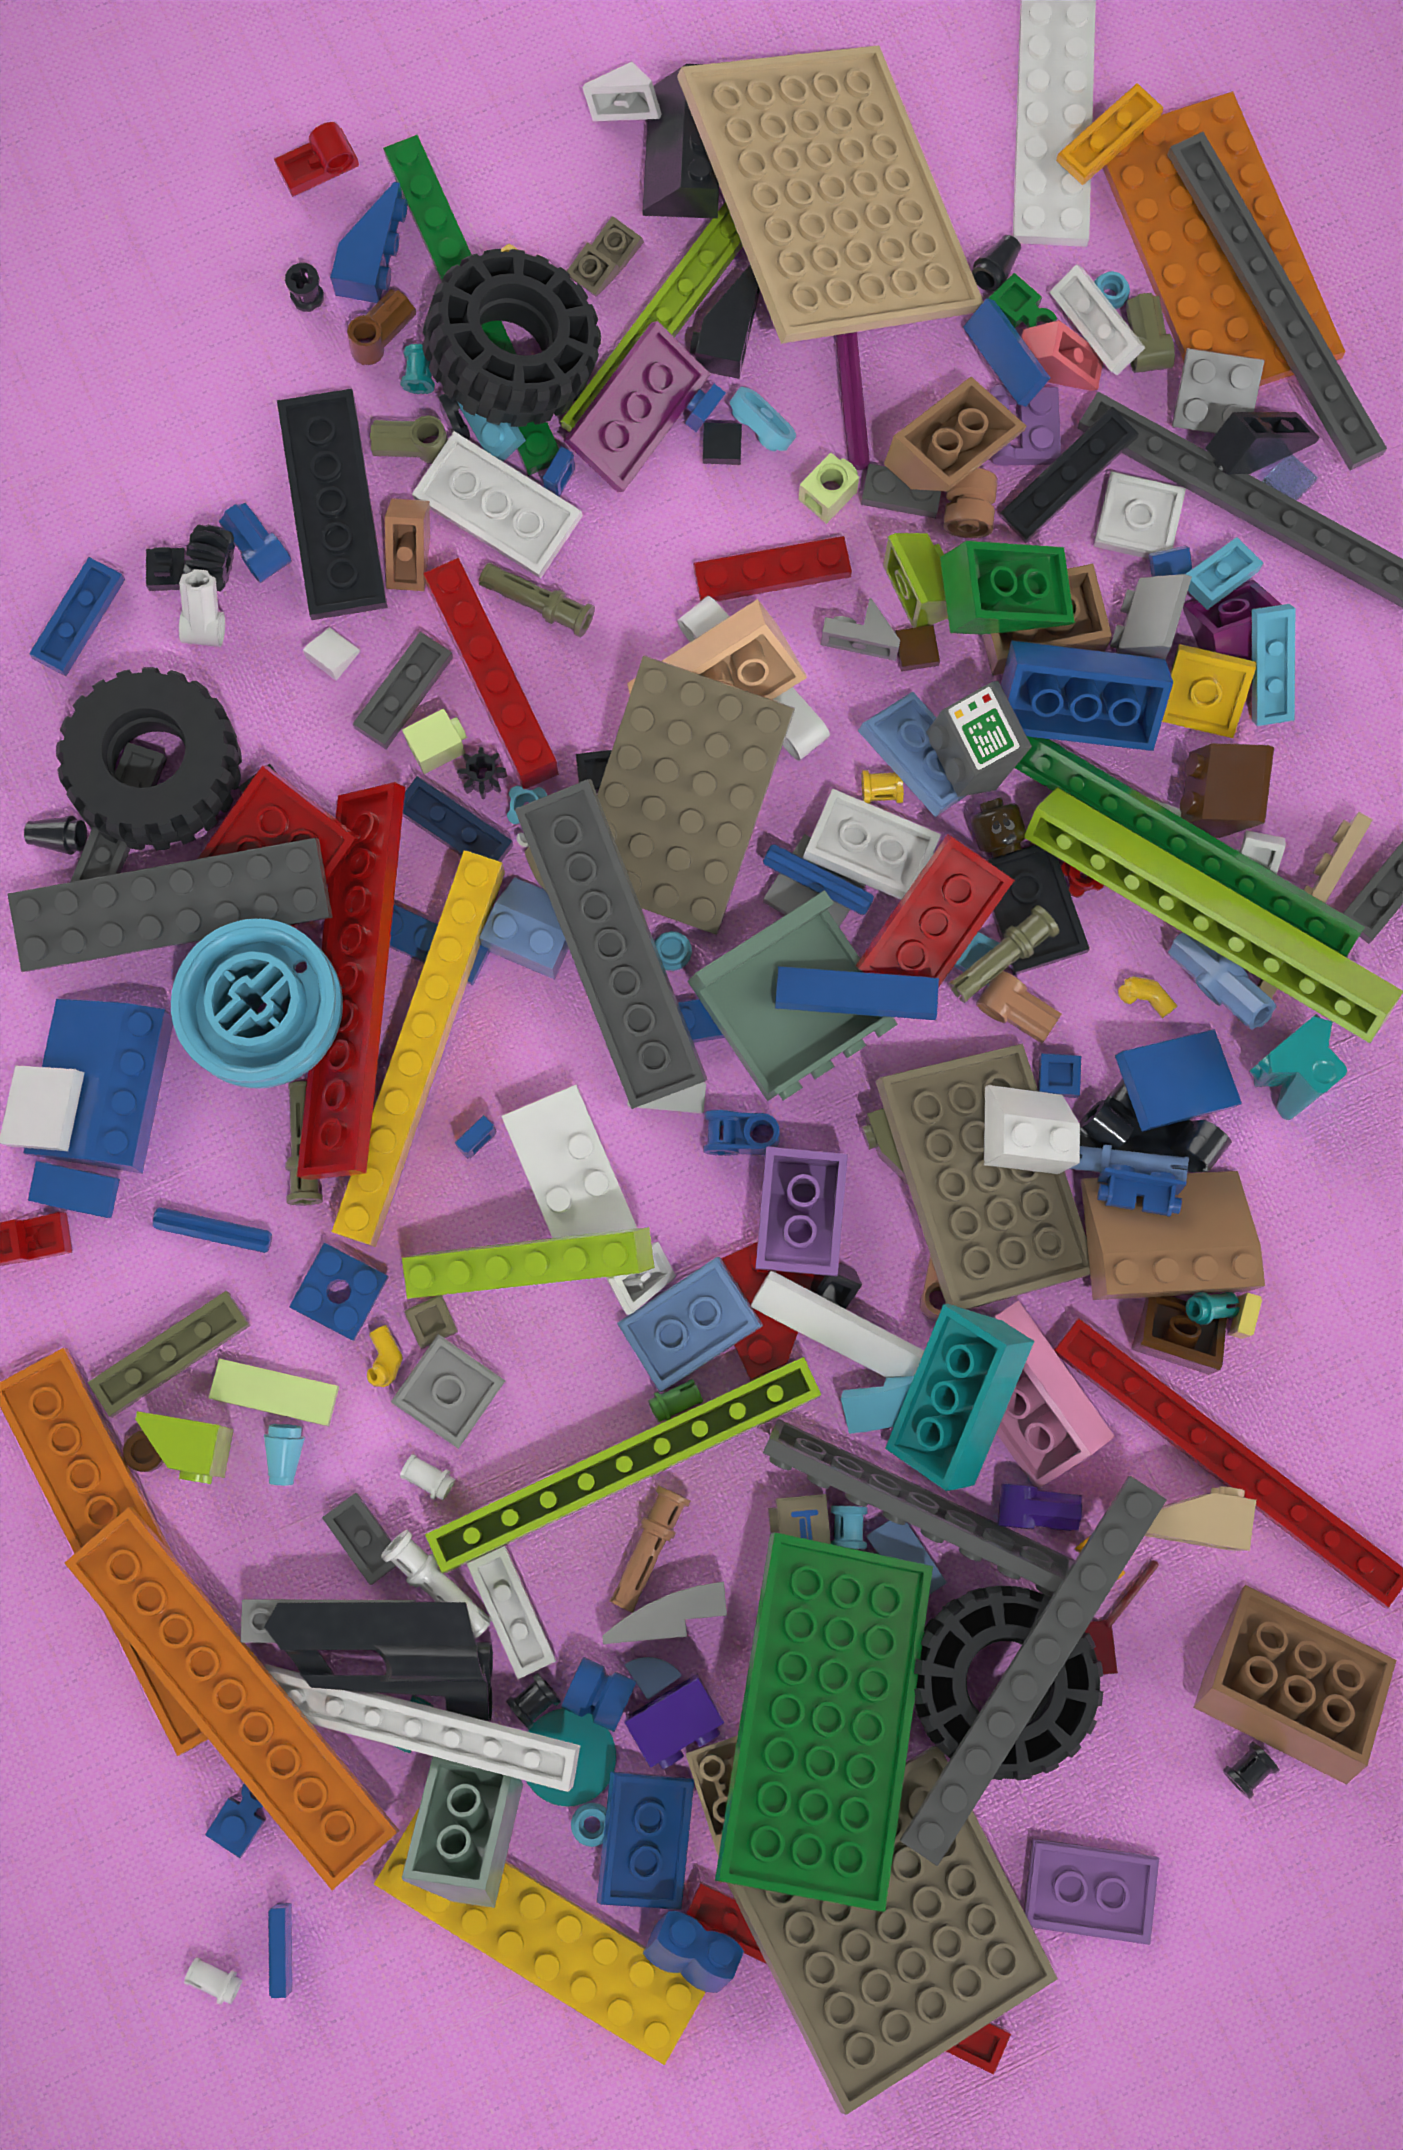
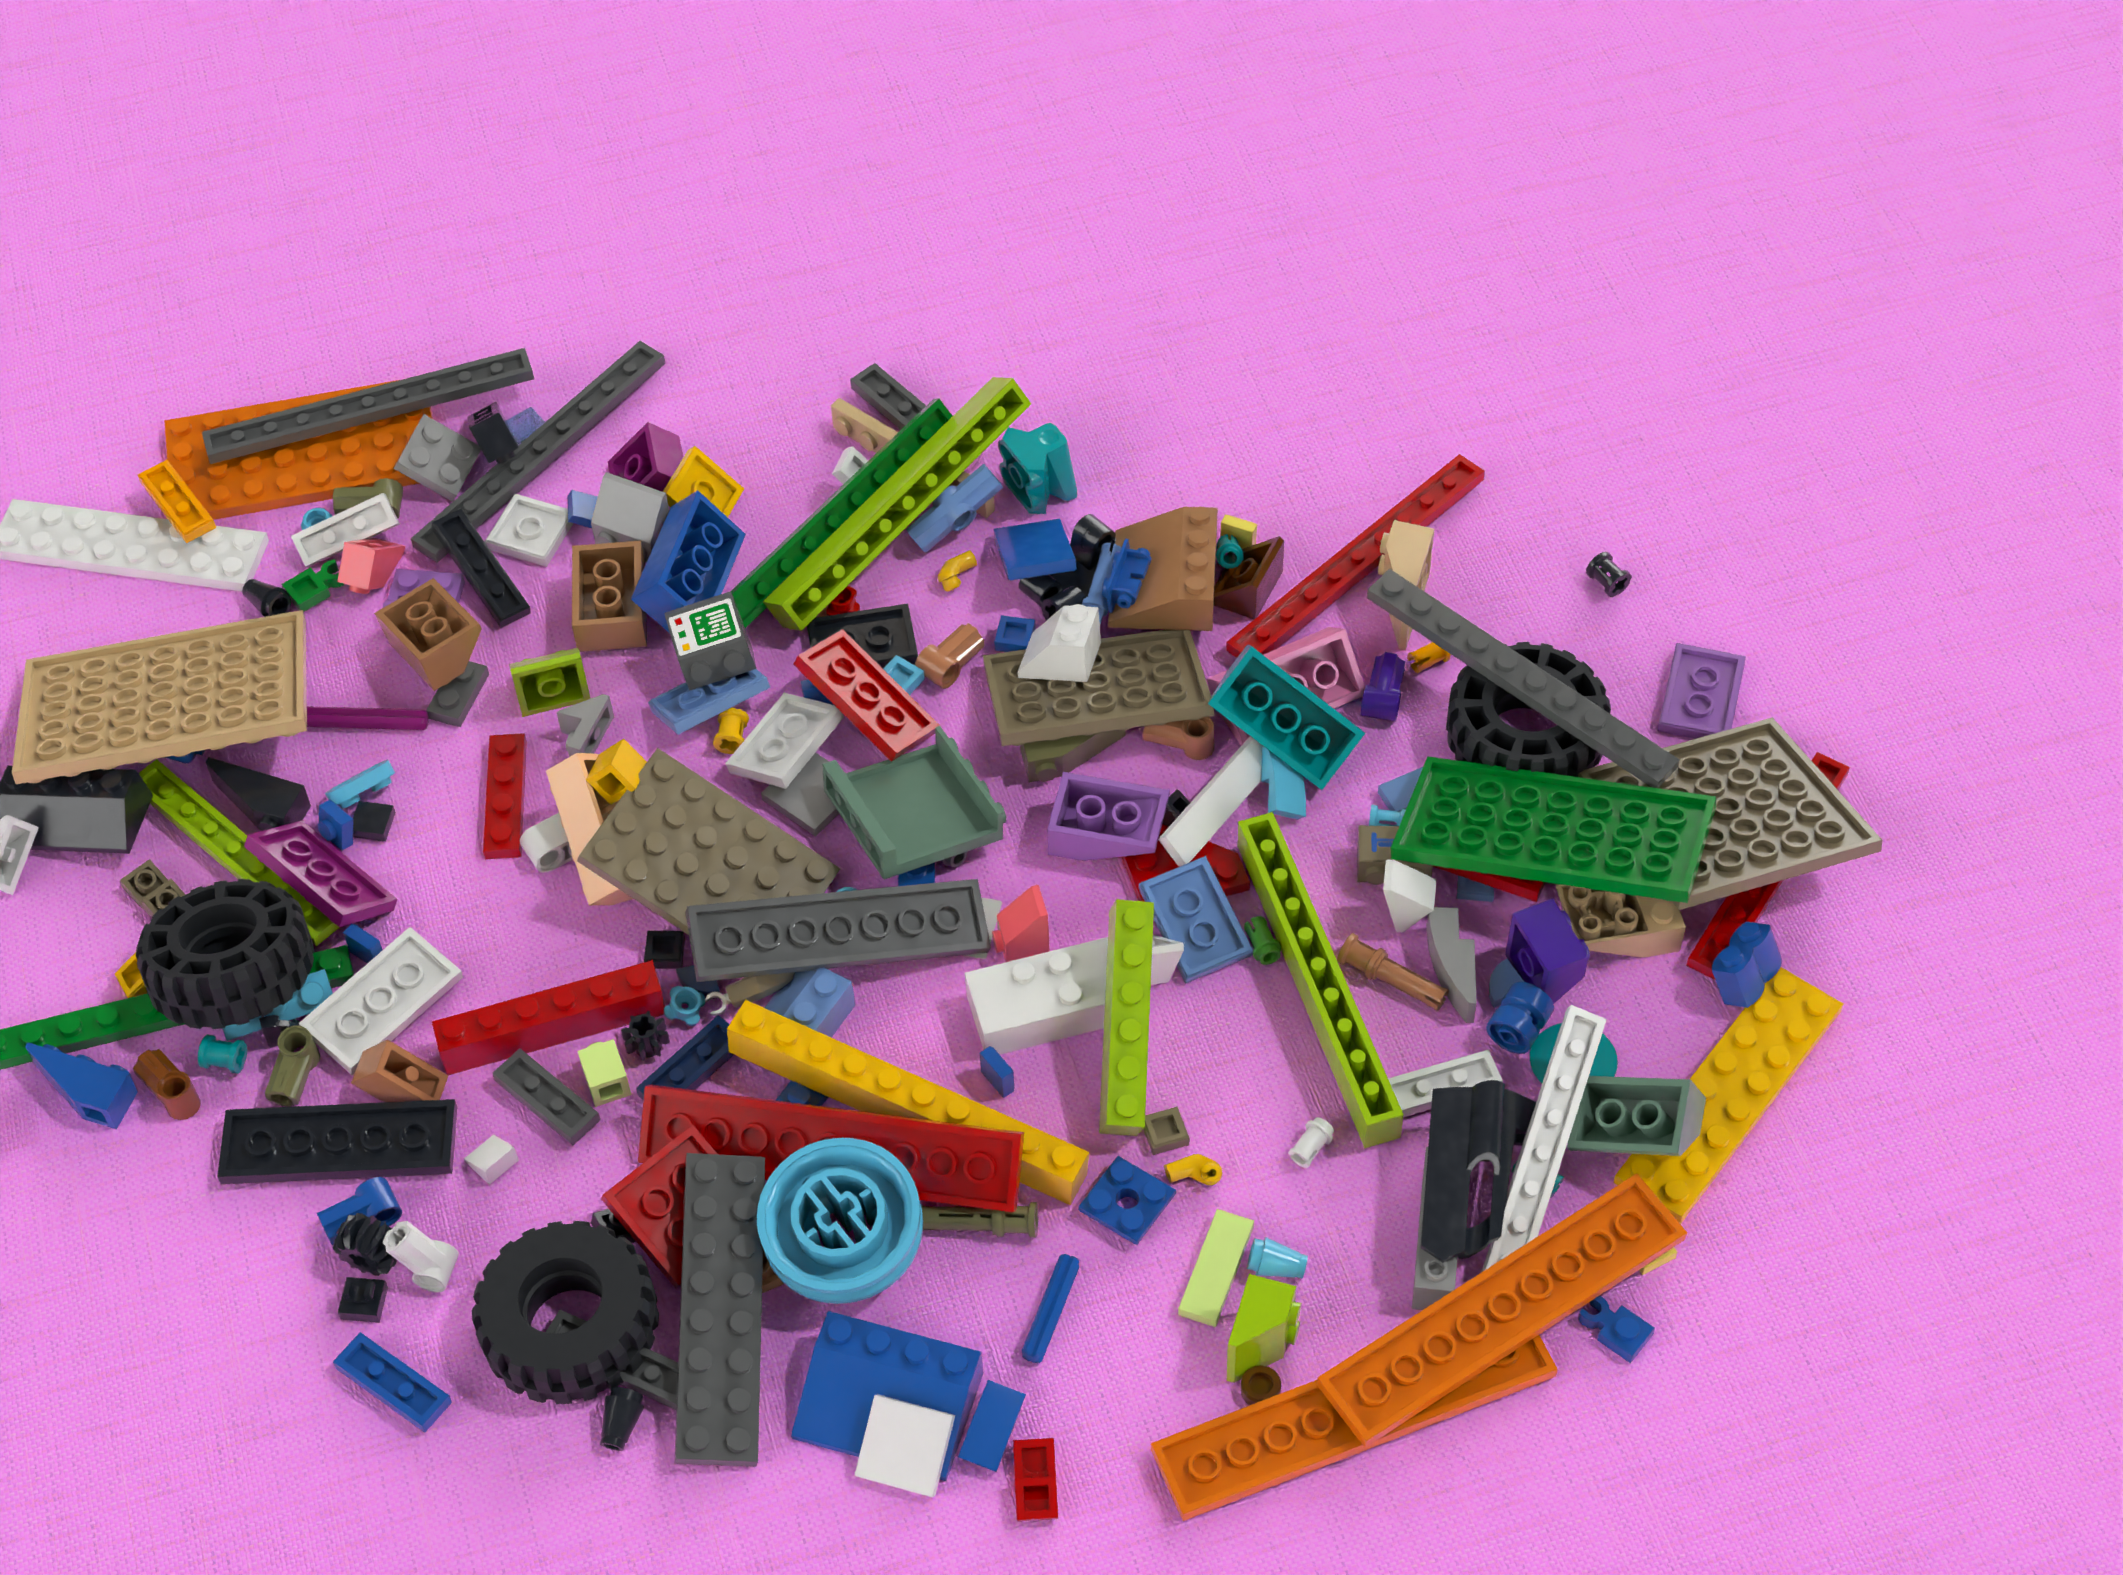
camera: 80 degrees left, 25 degrees down
(168, 1354) = (1169, 1353): olive plate -> none
(213, 1981) = (1770, 1355): white pin -> none
(280, 1950) = (1740, 1296): blue tile -> none
(304, 287) = (105, 1142): black bush -> none
(360, 1537) = (1363, 1198): dark grey plate -> none
(424, 1572) = (1395, 1144): white pin -> none
(448, 1391) = (1232, 1118): light grey tile -> none
(533, 1701) = (1521, 1072): black bush -> none
(552, 605) = (493, 965): olive pin -> none
(577, 1824) = (1634, 1032): medium azure plate -> none
(645, 1841) = (1650, 997): blue tile -> none
(649, 1139) = (1023, 927): none -> coral slope
(734, 1558) = (1408, 894): none -> white slope
(738, 1133) = (1027, 867): blue piece -> none
(760, 672) = (616, 771): none -> yellow brick
(818, 879) = (805, 782): blue axle -> none
(827, 502) = (441, 740): yellowish green brick -> none
(857, 993) = (919, 755): blue tile -> none
(907, 1502) = (1377, 765): dark grey plate -> none
(917, 648) = (614, 688): reddish brown tile -> none
(970, 505) = (496, 638): nougat wheel -> none
(998, 827) = (784, 647): dark brown head -> none
(1005, 587) = (581, 601): green slope -> none
(1006, 352) = (356, 593): blue tile -> none
(1017, 944) = (895, 643): olive pin -> none
(1223, 572) = (591, 469): medium azure plate -> none
(1227, 787) = (790, 482): reddish brown slope -> none
(1275, 664) = (681, 436): medium azure plate -> none
(1297, 1685) = (1543, 537): medium nougat slope -> none

